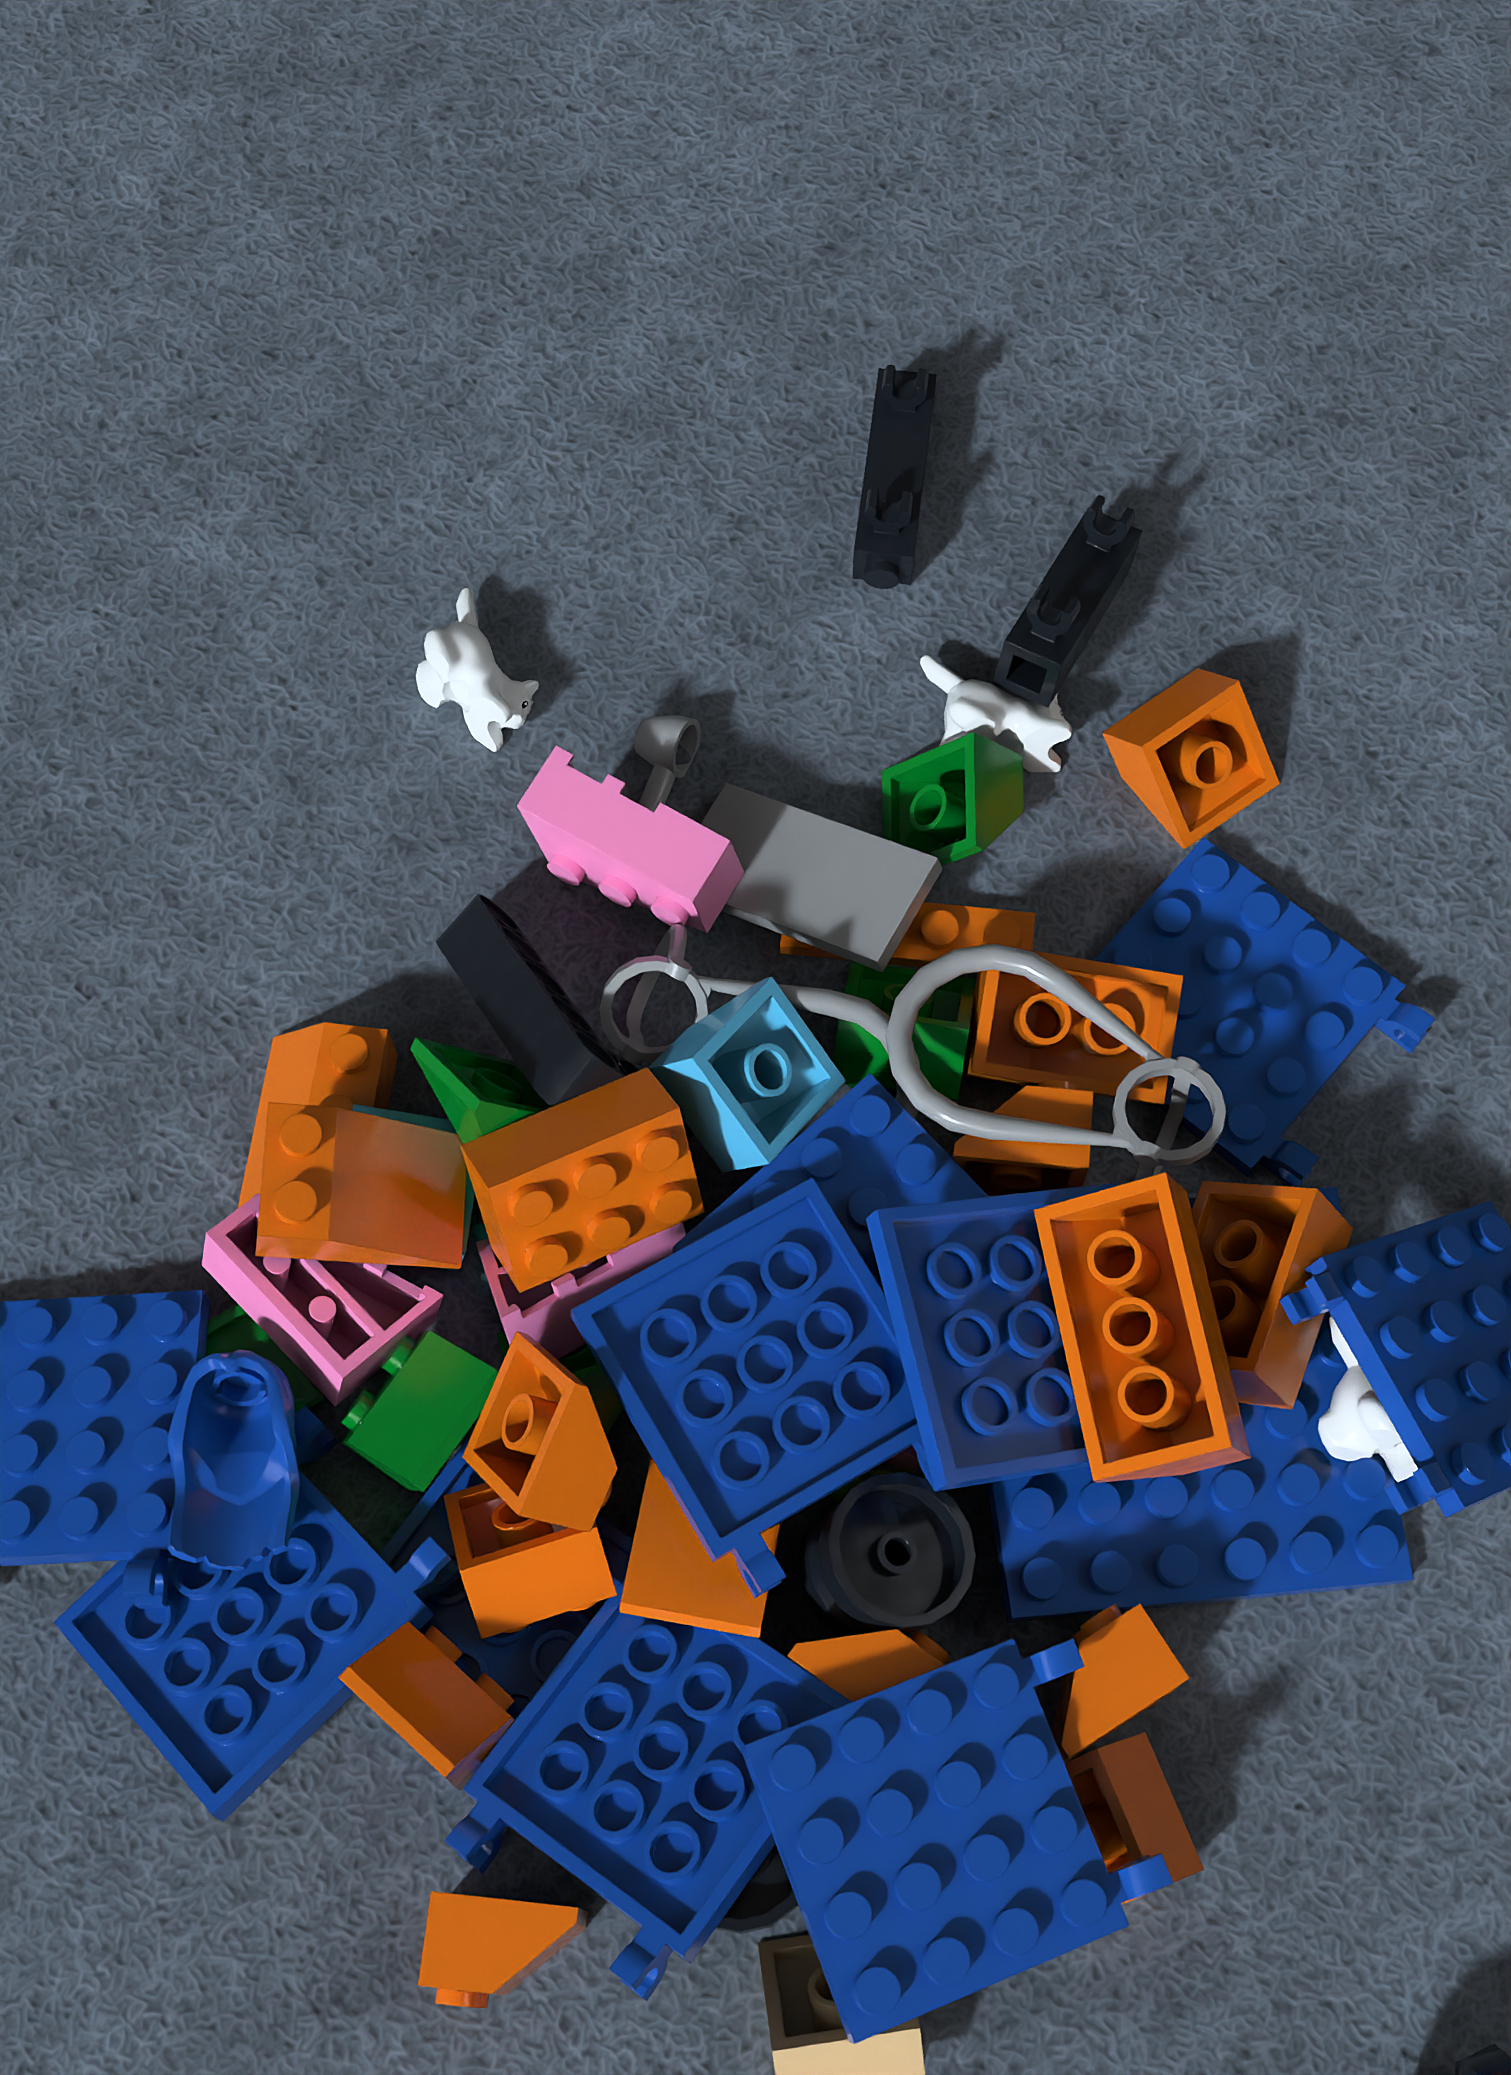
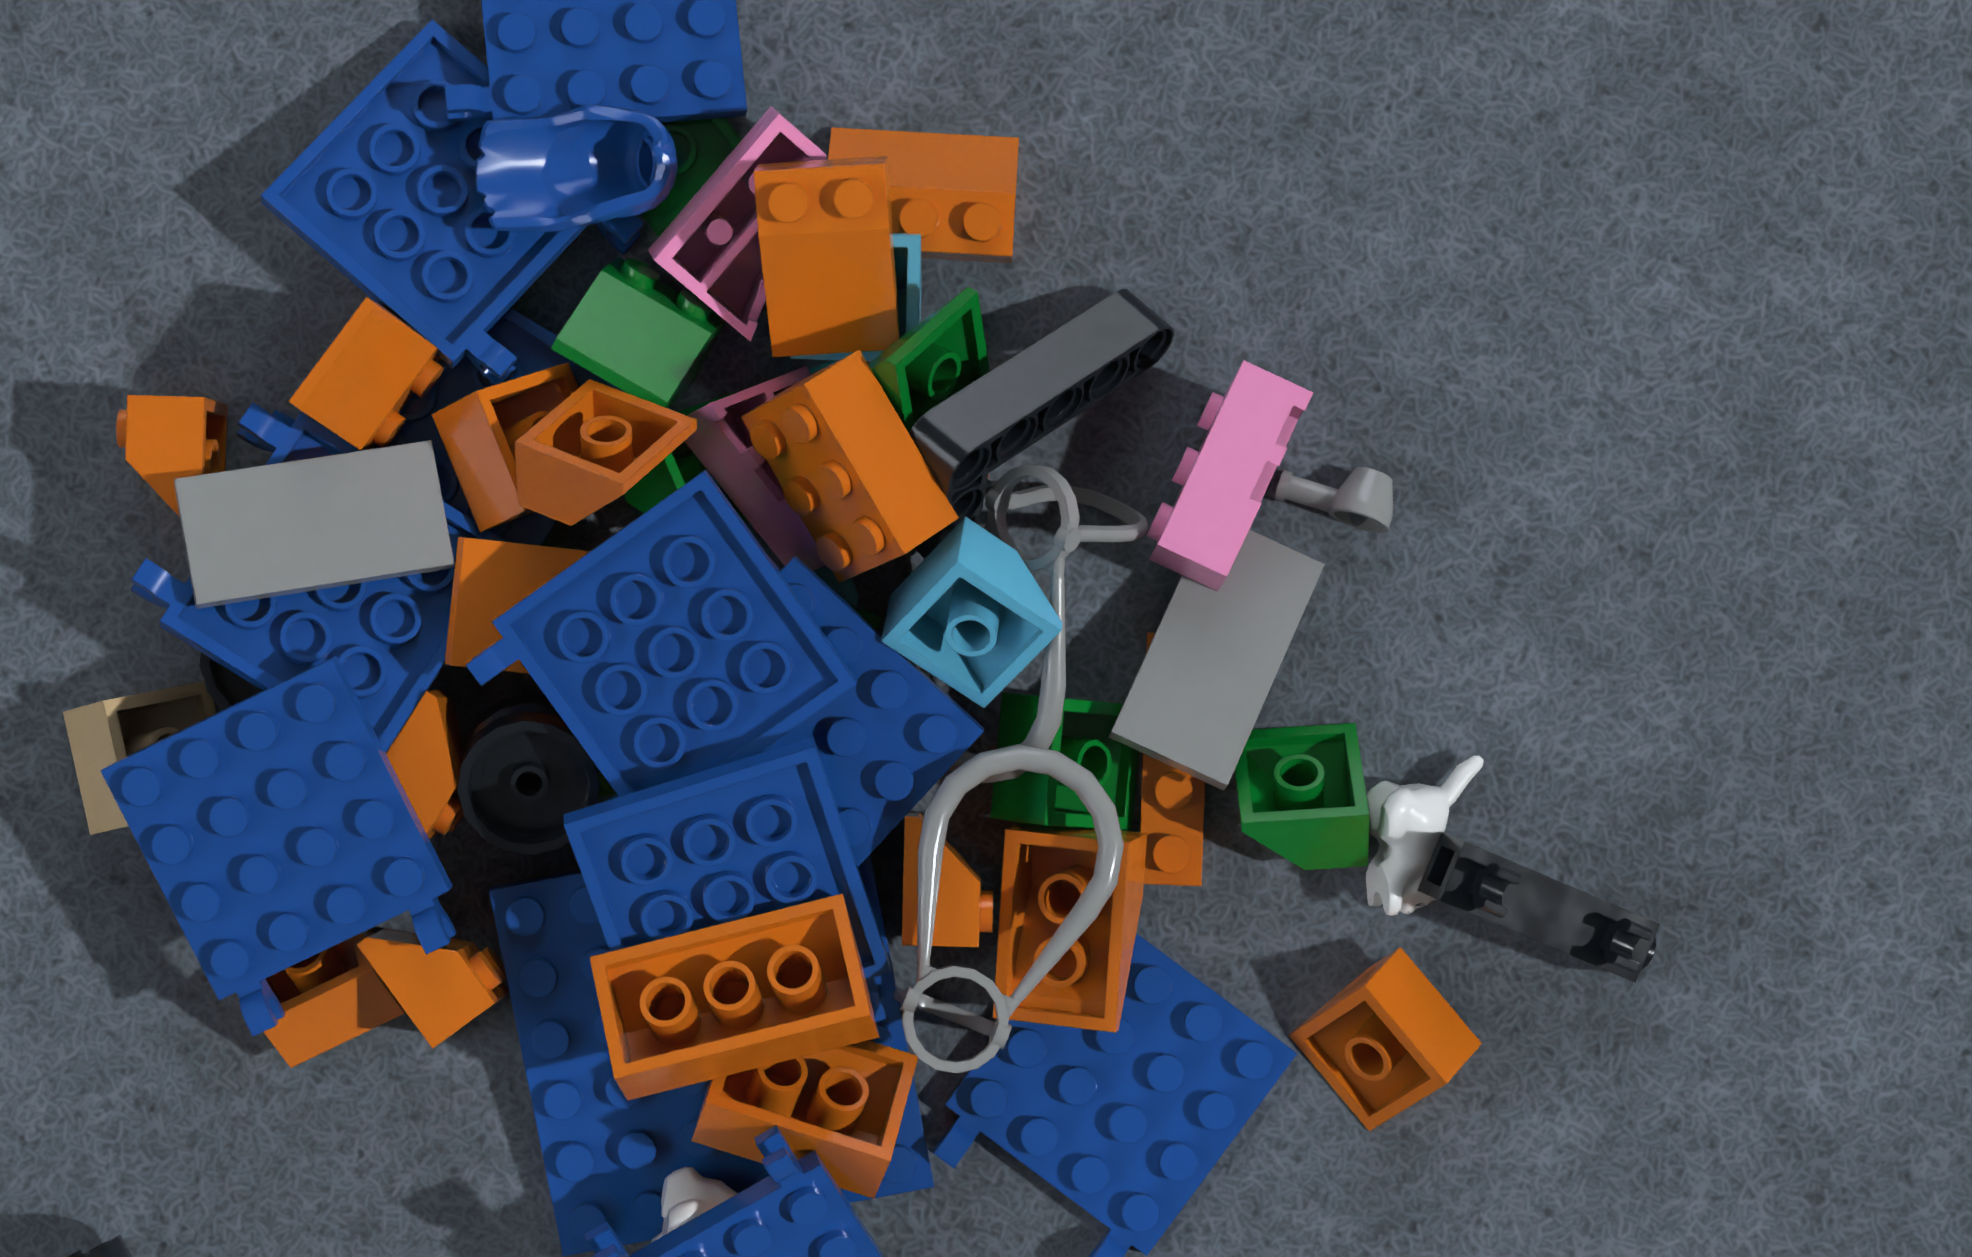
camera: 80 degrees right, 20 degrees up
(464, 671) = (1429, 282): white animal -> none
(589, 1777) = (313, 524): none -> light grey tile
(894, 477) = (1694, 716): black brick -> none

